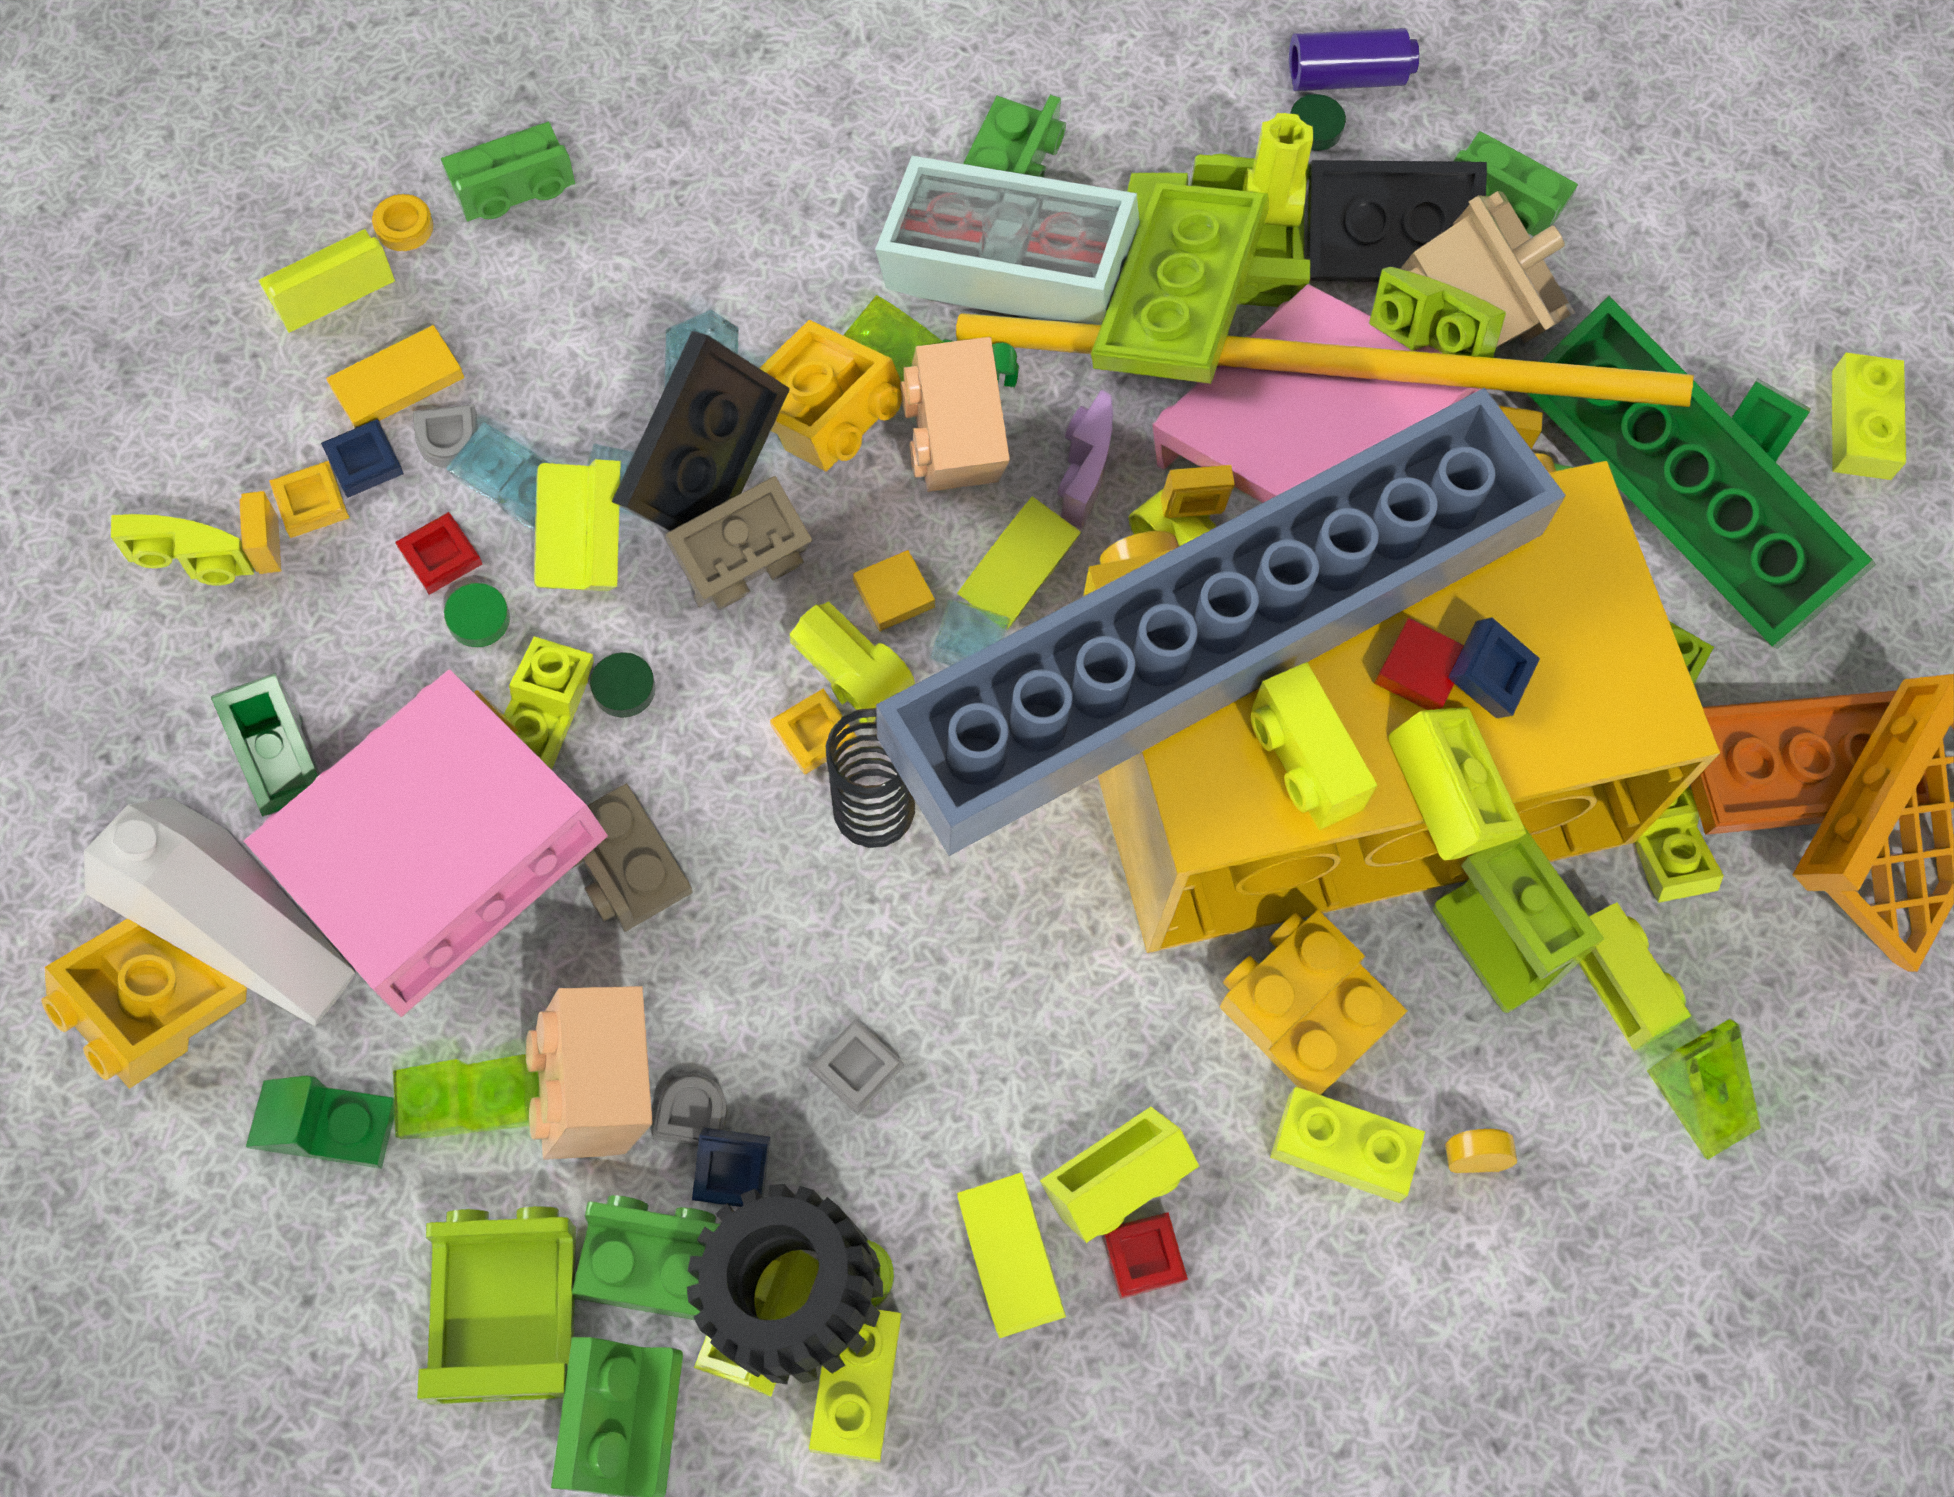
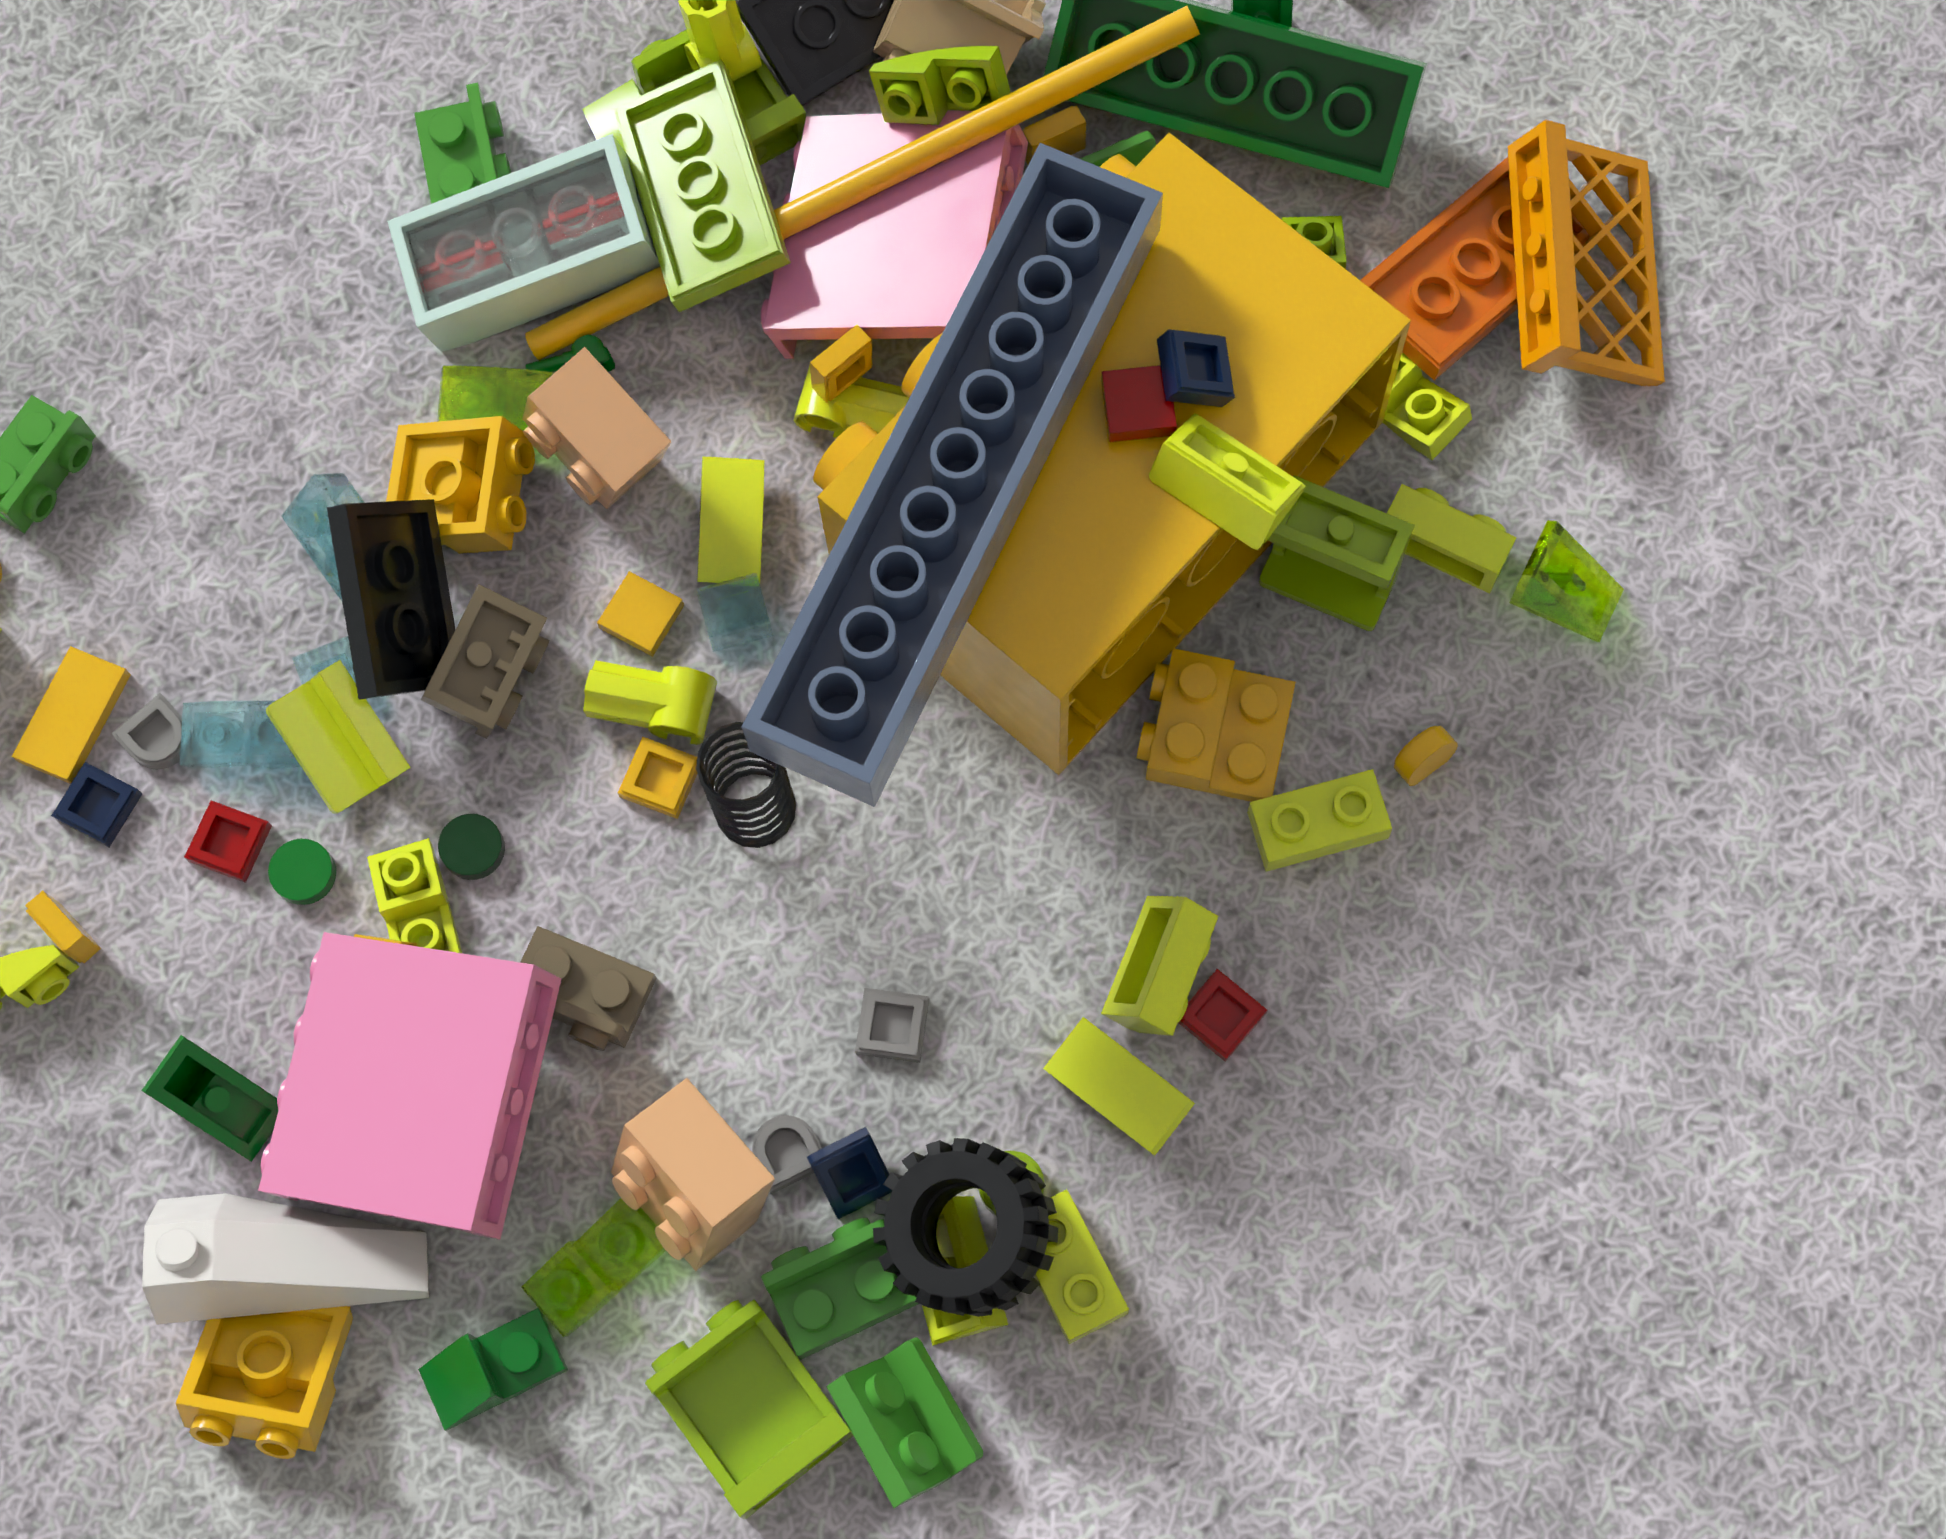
camera: 25 degrees left, 5 degrees up
(309, 499) = (78, 870): yellow tile -> none
(1090, 441) = (722, 385): lavender slope -> none
(1313, 746) = (1097, 526): neon yellow piece -> none

